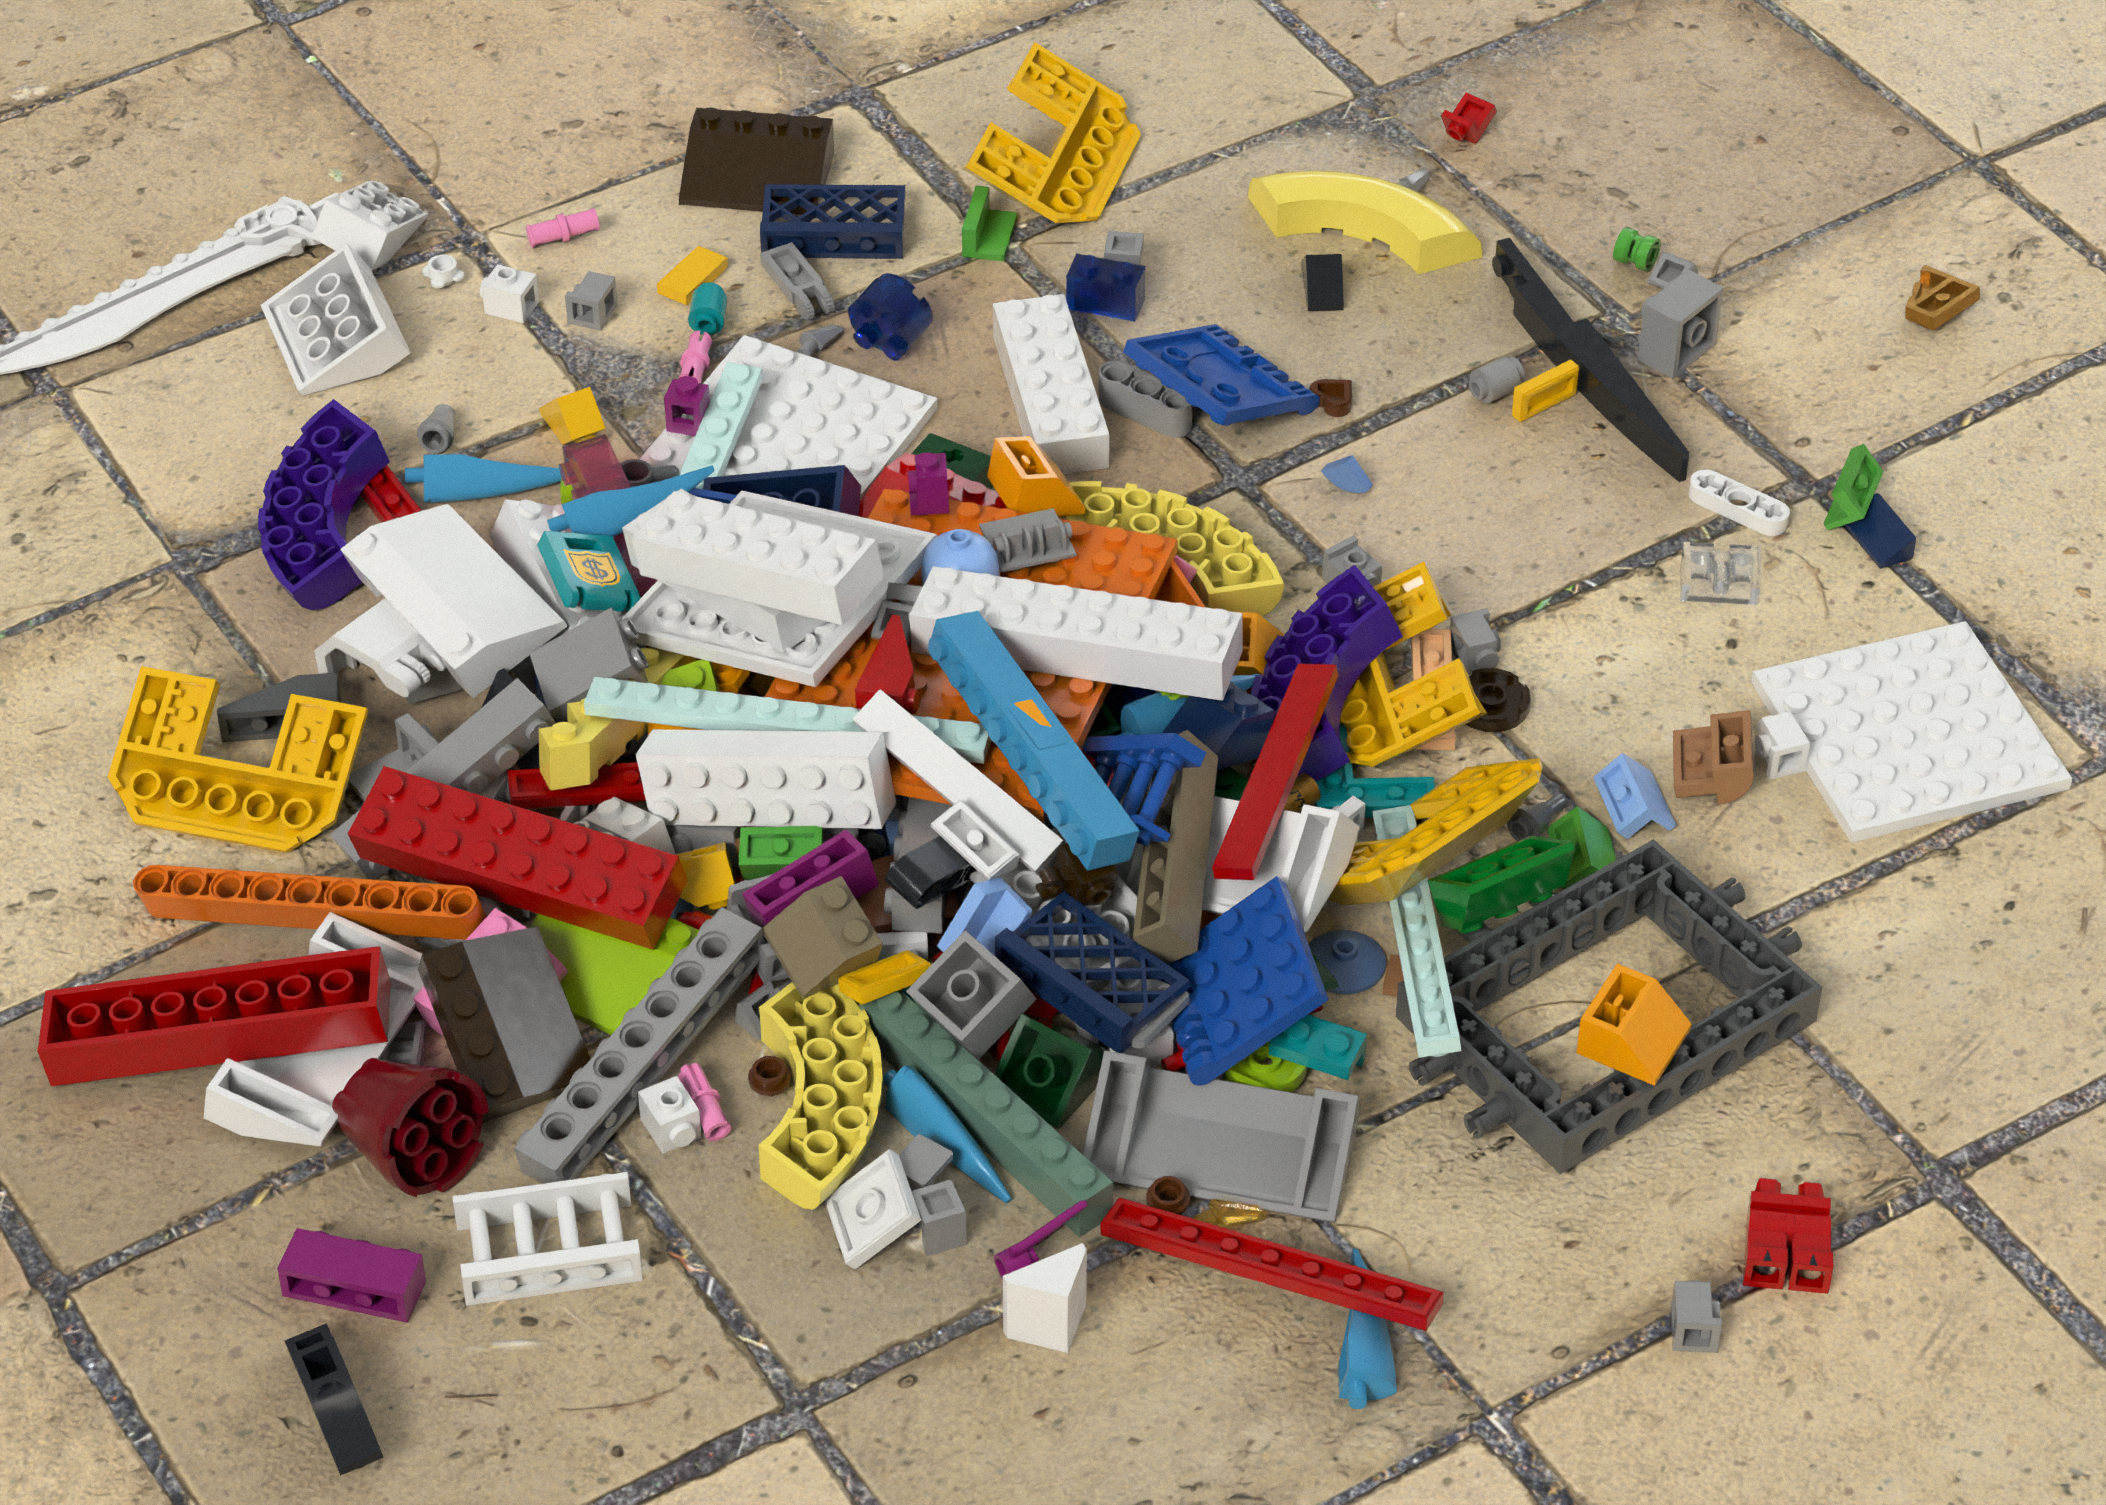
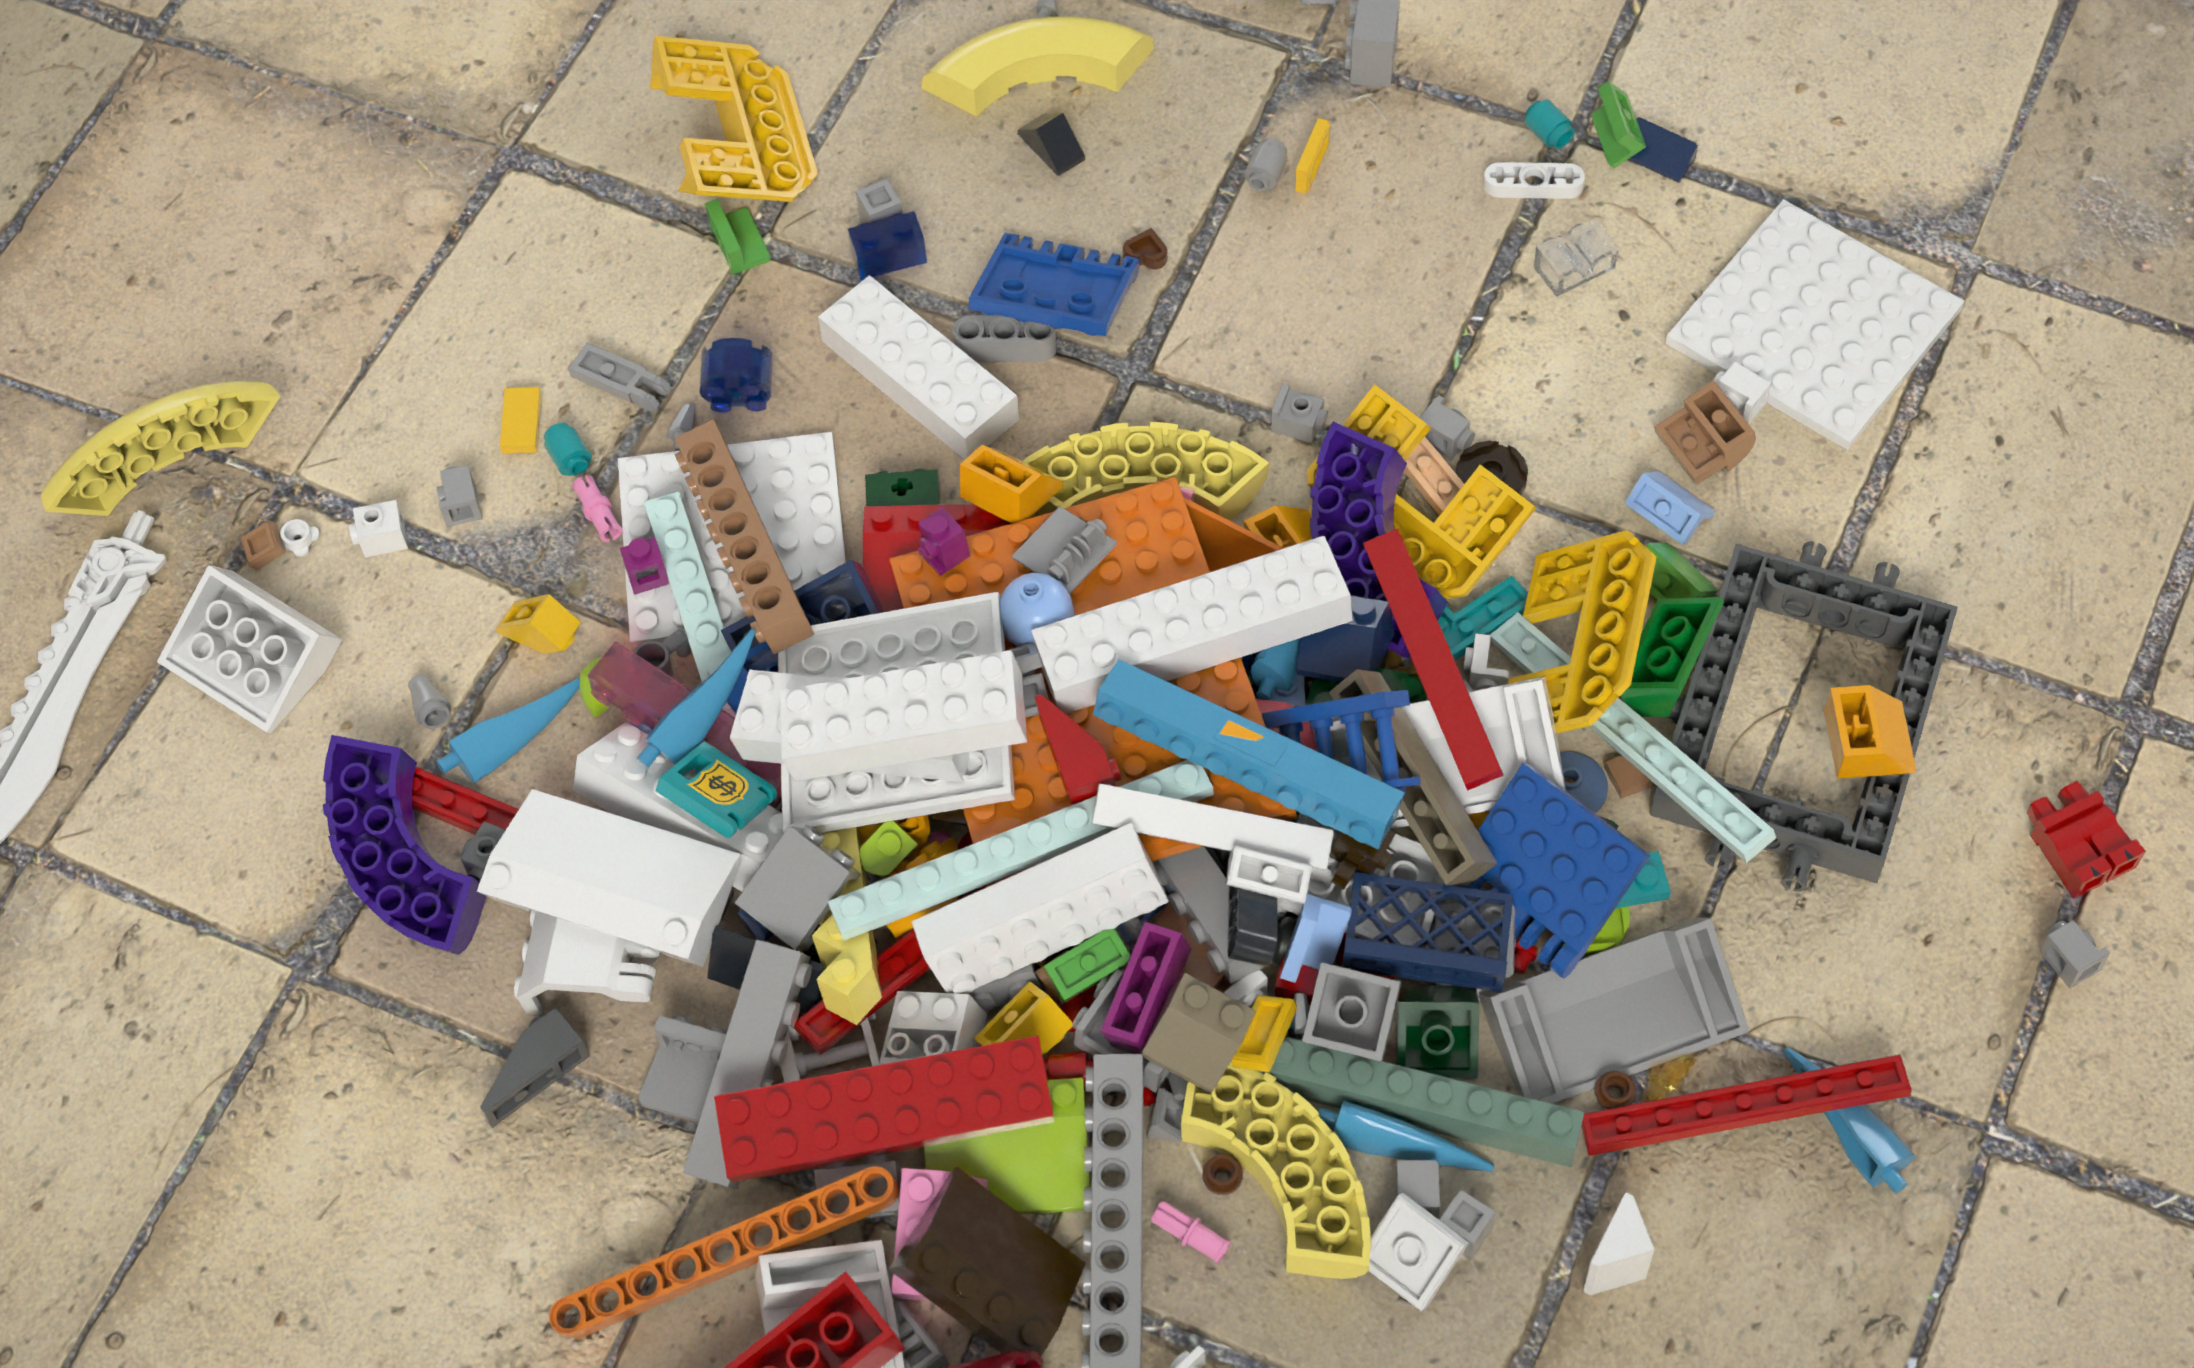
camera: 30 degrees left, 15 degrees up
(270, 808) = (549, 1190): yellow slope -> none
(369, 222) = (195, 525): white slope -> none
(386, 140) = (153, 438): none -> light yellow brick
(410, 263) = (262, 545): none -> medium nougat tile
(562, 227) = (369, 434): bright pink pin -> none
(669, 1114) = (1178, 1264): white brick -> none
(741, 151) = (488, 276): dark brown slope -> none
(777, 416) = (744, 538): none -> medium nougat brick
(834, 235) = (614, 318): dark blue fence -> none
(1023, 1253) = (1554, 1224): magenta plant -> none
(1347, 475) = (1220, 323): medium blue tile -> none
(1600, 374) = (1307, 99): black slope -> none
(1790, 464) = (1549, 124): none -> teal brick

